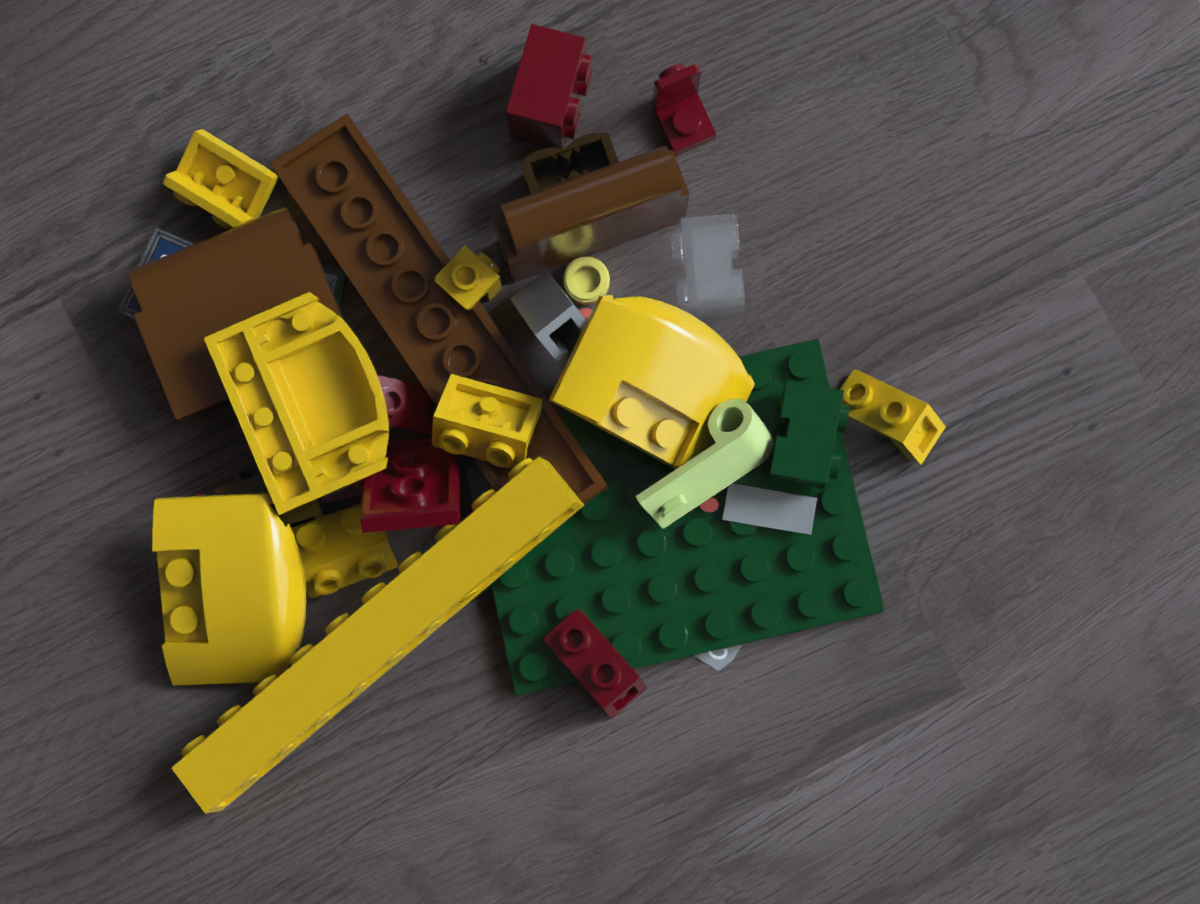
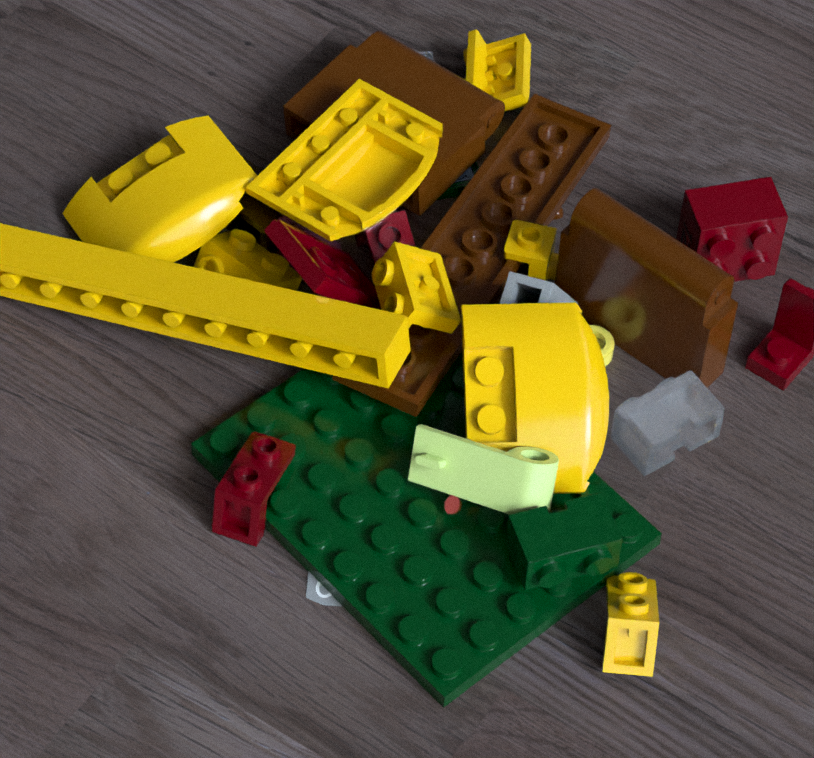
camera: 60 degrees right, 30 degrees down
(769, 508) = (479, 555): light grey sticker -> none

